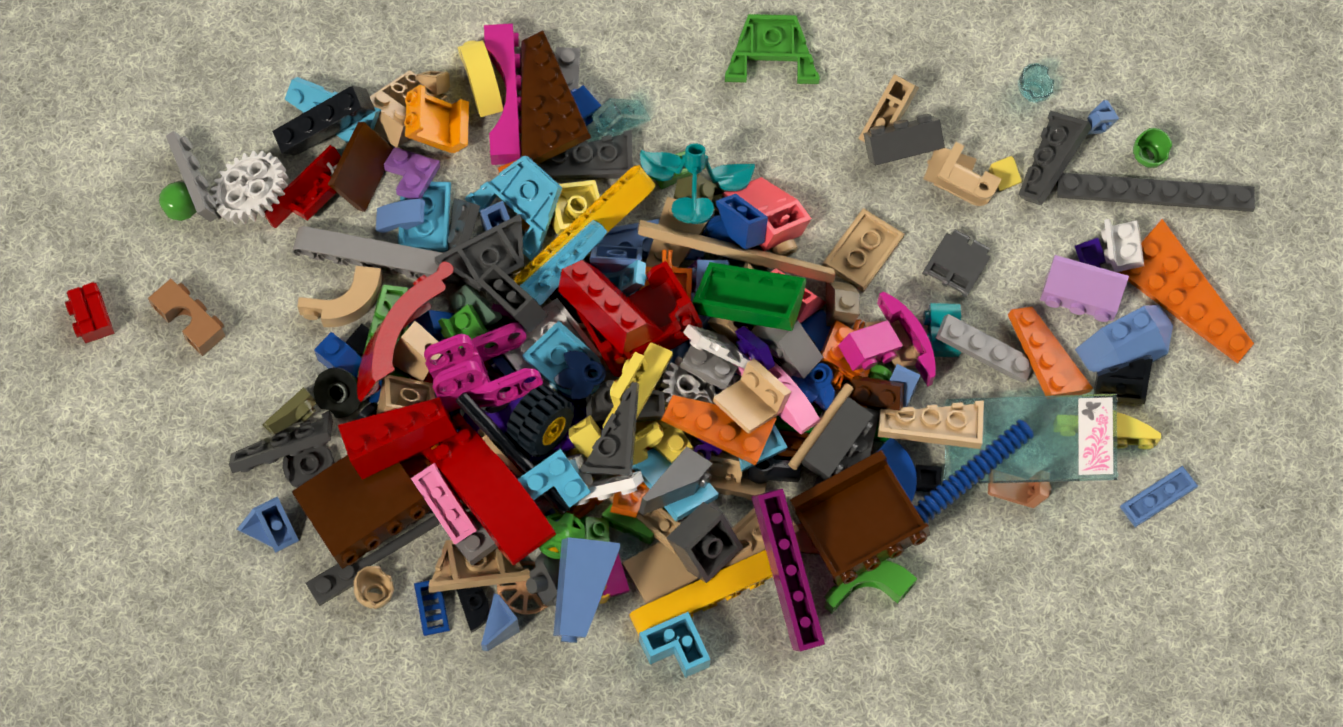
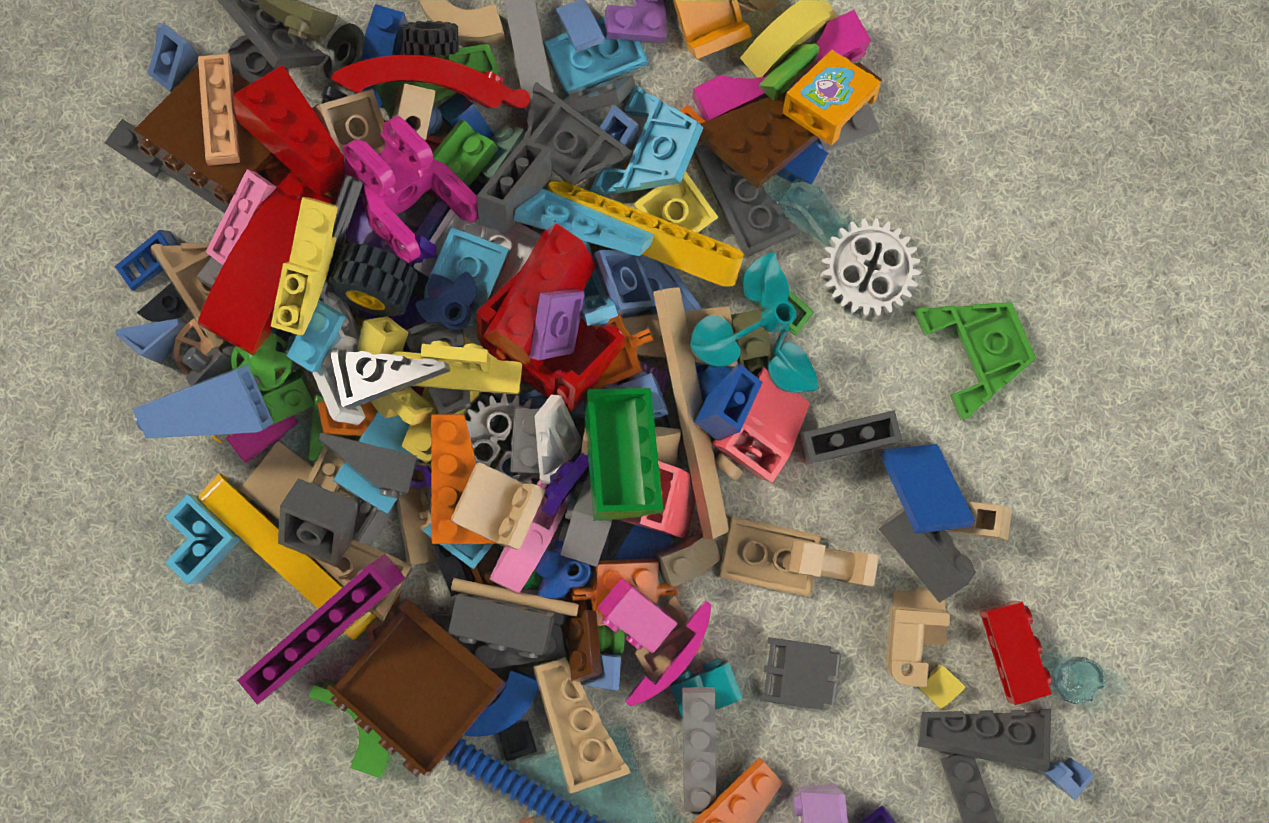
camera: 65 degrees right, 15 degrees up
(346, 490) = (218, 110): none -> light nougat tile
(365, 316) = (430, 38): none -> black tyre
(370, 578) = (131, 192): tan hair -> none
(510, 83) = (789, 70): none -> bright green slope
(514, 452) = (308, 266): none -> light yellow slope
(547, 62) = (830, 96): none -> light orange panel
(635, 301) = (556, 323): none -> medium lavender tile
(695, 83) = (845, 257): none -> white gear
(800, 157) = (850, 437): none -> dark grey brick
(859, 120) = (926, 488): none -> blue tile
(893, 199) = (842, 565): none -> tan piece
(1000, 115) = (1016, 652): none -> red brick

